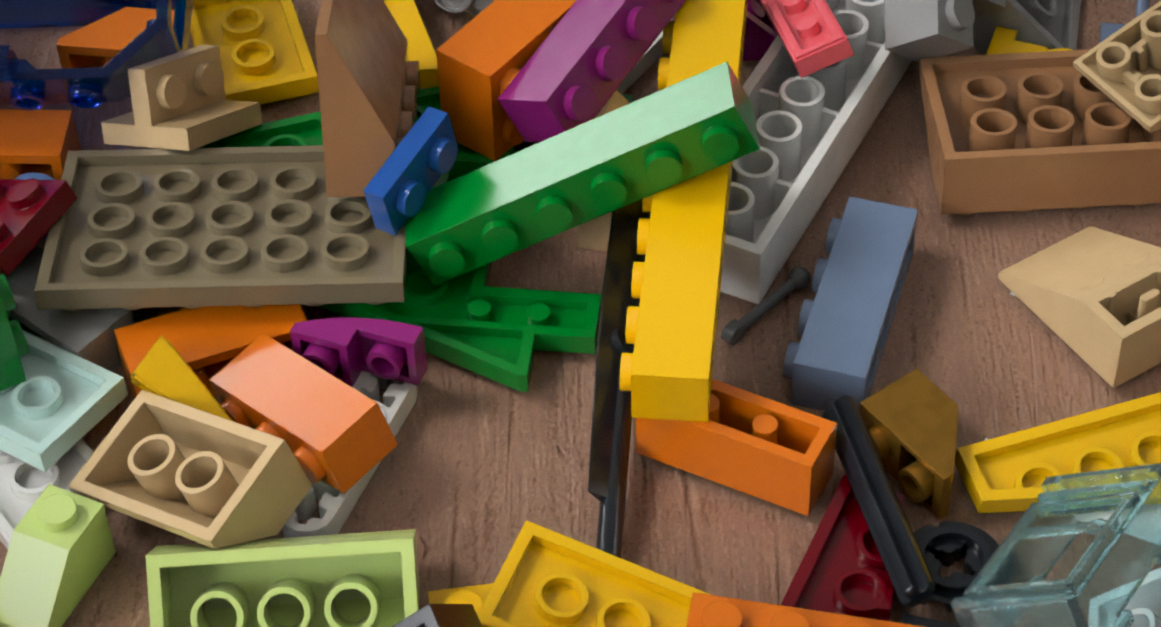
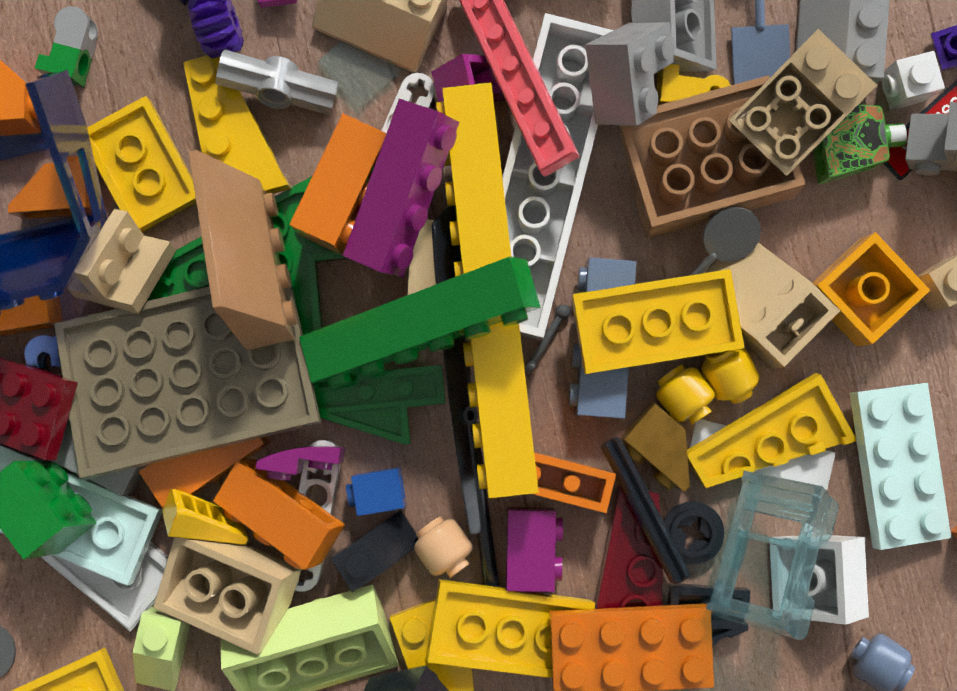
camera: 10 degrees left, 40 degrees up
(411, 171) = (297, 349): blue plate -> none
(432, 494) = (375, 550): none -> black slope
(459, 426) = (376, 491): none -> blue brick
(543, 495) = (443, 547): none -> light nougat head
(686, 524) = (531, 549): none -> magenta brick
(936, 263) = (657, 321): none -> yellow plate
(972, 378) = (685, 394): none -> yellow head
(1043, 370) = (730, 375): none -> yellow head
(1062, 204) = (729, 236): none -> dark grey piece

